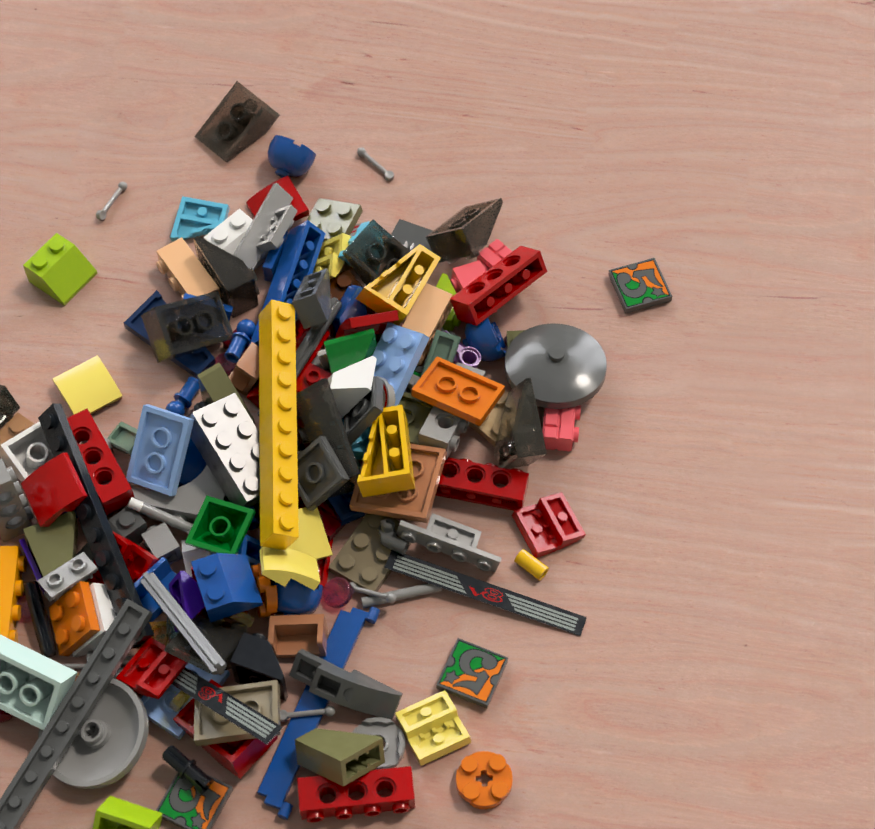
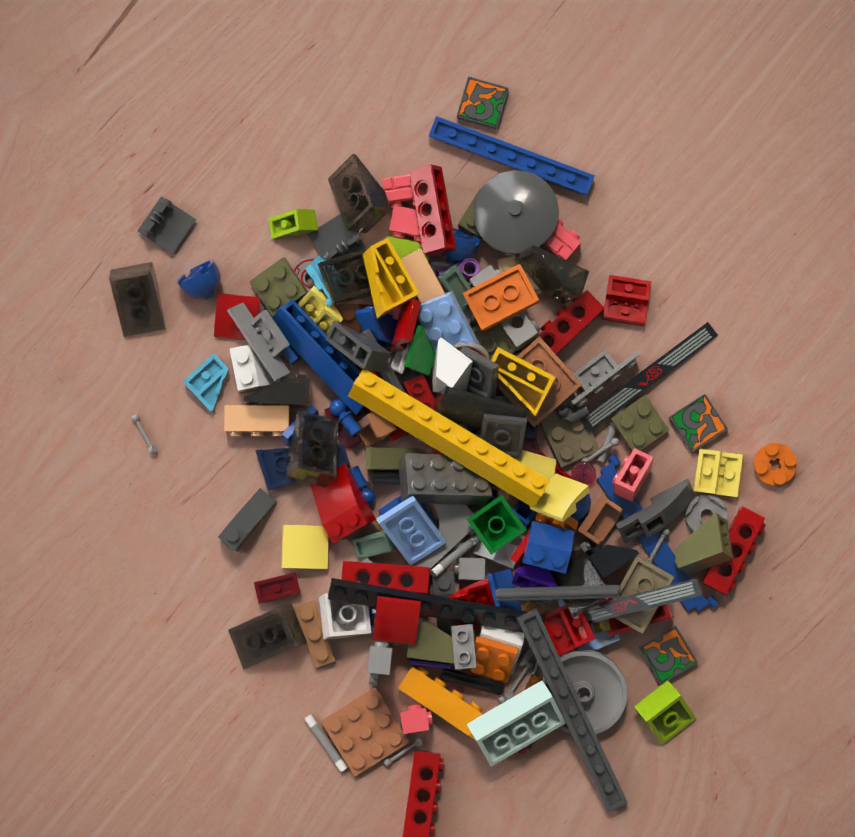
camera: 55 degrees left, 25 degrees up
(29, 387) = (277, 587): none -> dark red plate
(59, 269) = (188, 509): lime slope -> none
(77, 322) = (247, 519): none -> dark grey slope
(150, 384) = (342, 506): none -> red slope
(187, 769) = (649, 647): black axle -> none
(323, 109) = (166, 225): none -> dark grey hinge
(367, 634) = (632, 476): none -> coral brick
(389, 175) = (260, 215): light grey hinge -> none
(401, 200) = (293, 223): none -> lime slope
(427, 613) = (639, 424): none -> olive plate
(531, 564) = (648, 332): yellow piece -> none
(609, 336) = (511, 155): none -> blue plate

